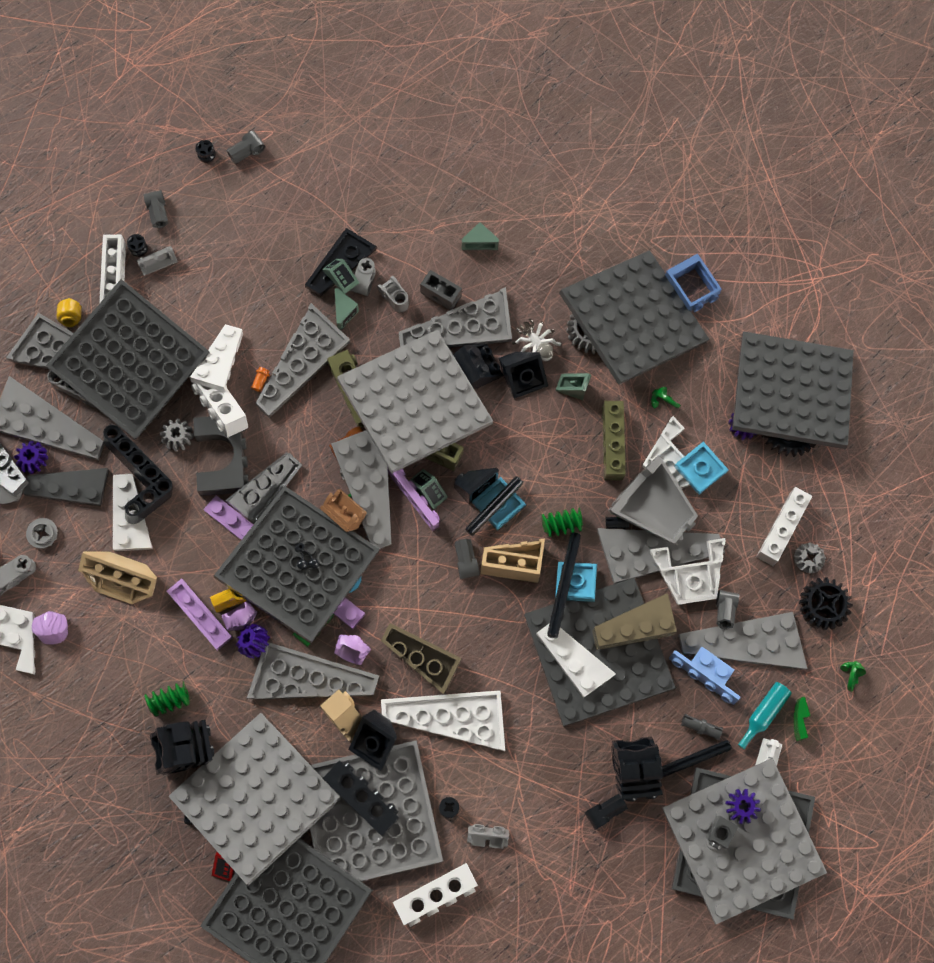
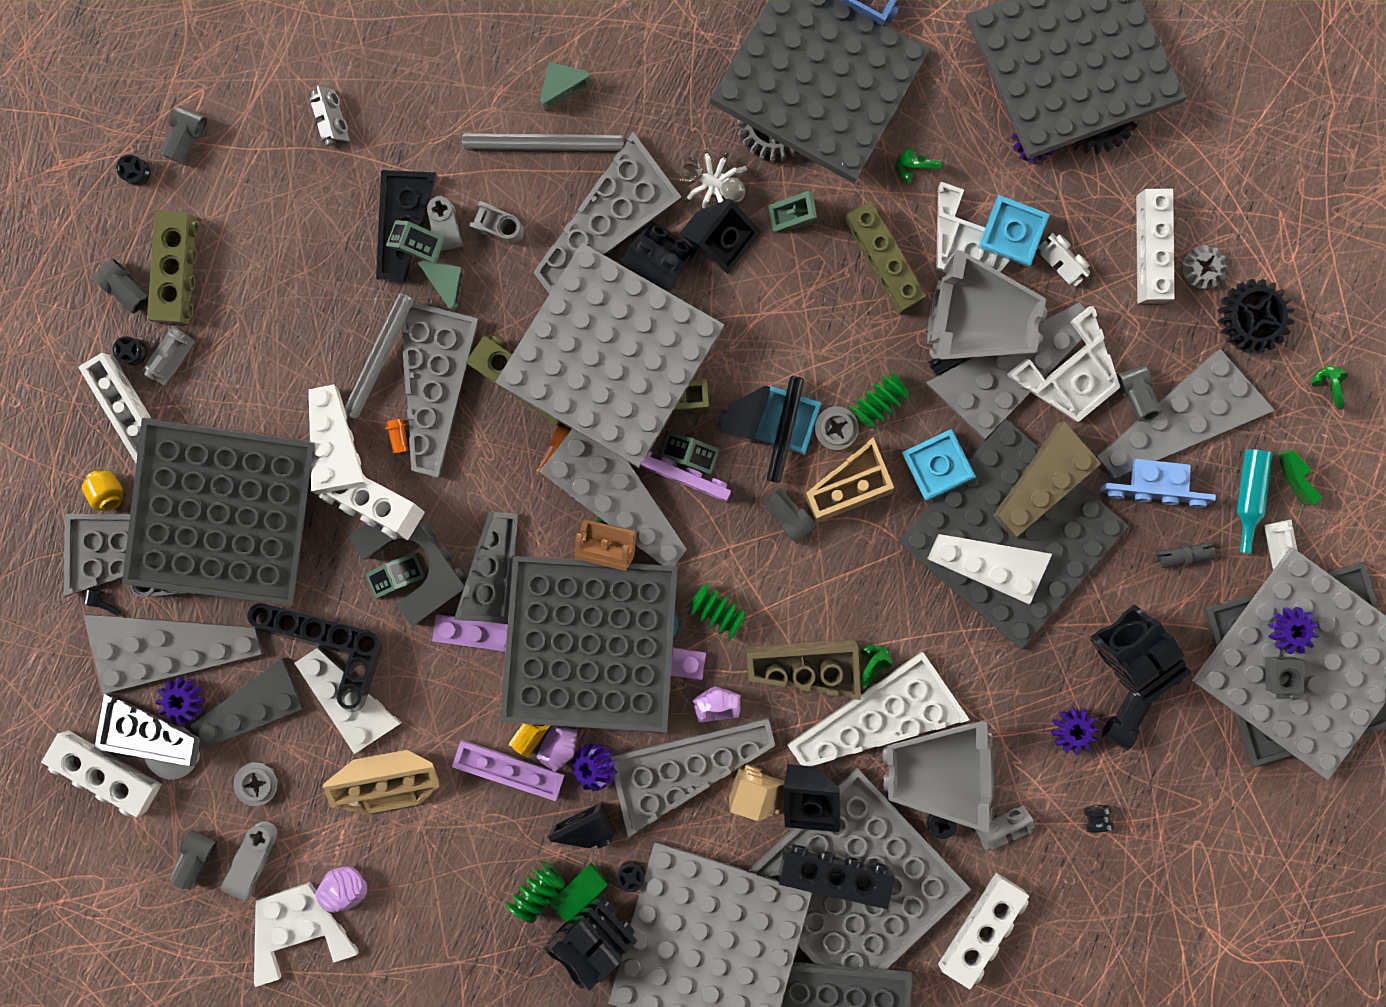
camera: 25 degrees left, 15 degrees up
(21, 370) = (93, 597): none -> black hand
(171, 430) = (336, 577): light grey gear -> none
(193, 713) = (579, 892): none -> green slope
(203, 191) = (167, 226): none -> olive brick
(206, 458) = (395, 575): none -> slope
(224, 675) = (585, 829): none -> black slope
(229, 724) = (628, 881): none -> black wheel
(278, 327) = (378, 355): none -> light grey axle
(302, 564) = (597, 643): black piece -> none
(337, 177) = (326, 104): none -> light grey hinge
(386, 591) = (717, 611): none -> green piece
(440, 290) = (554, 185): dark grey brick -> none
(449, 265) = (552, 142): none -> light grey axle
(471, 681) = (878, 661): none -> green piece
(471, 772) = (945, 774): none -> light grey cone
(532, 518) = (839, 415): none -> light grey gear
(552, 864) = (1098, 818): none -> black wheel
(562, 800) = (1085, 732): none -> dark purple gear
(564, 584) = (929, 481): black axle -> none
(696, 758) = (1199, 594): black axle -> none
(727, 510) = (1057, 251): none -> white hinge

